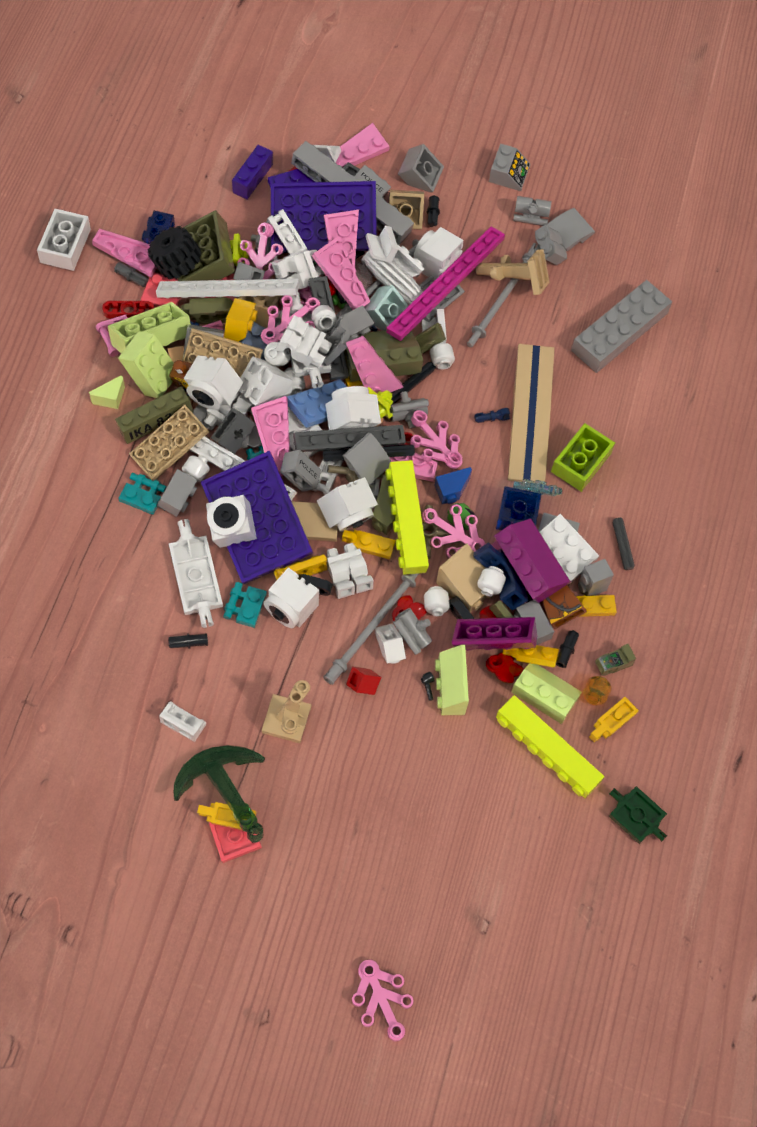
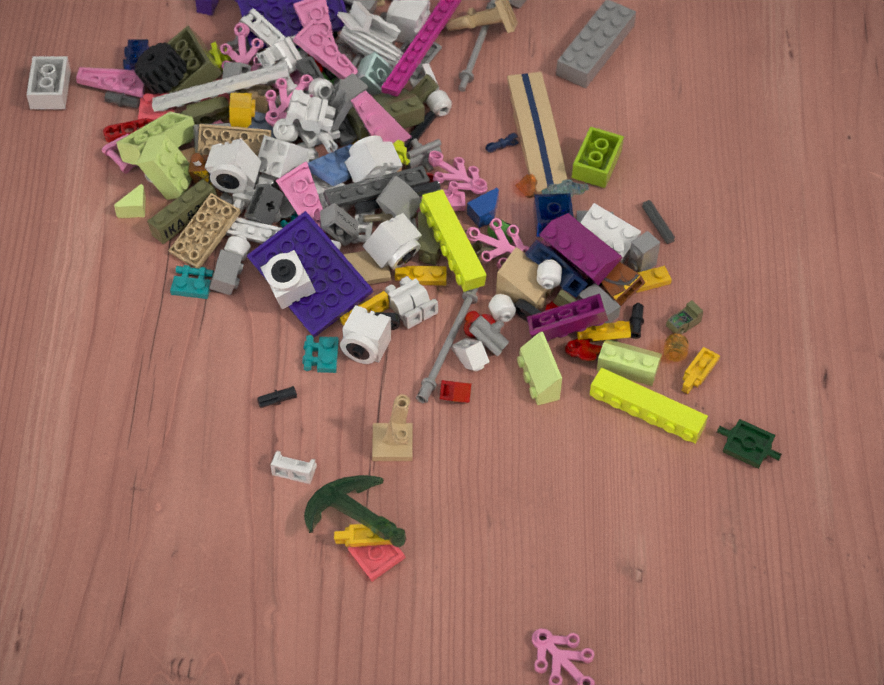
camera: 10 degrees left, 10 degrees down
(195, 574) = (265, 338): white plate -> none
(426, 679) = (514, 377): black hand -> none
(503, 470) = (527, 185): none -> clear orange tile

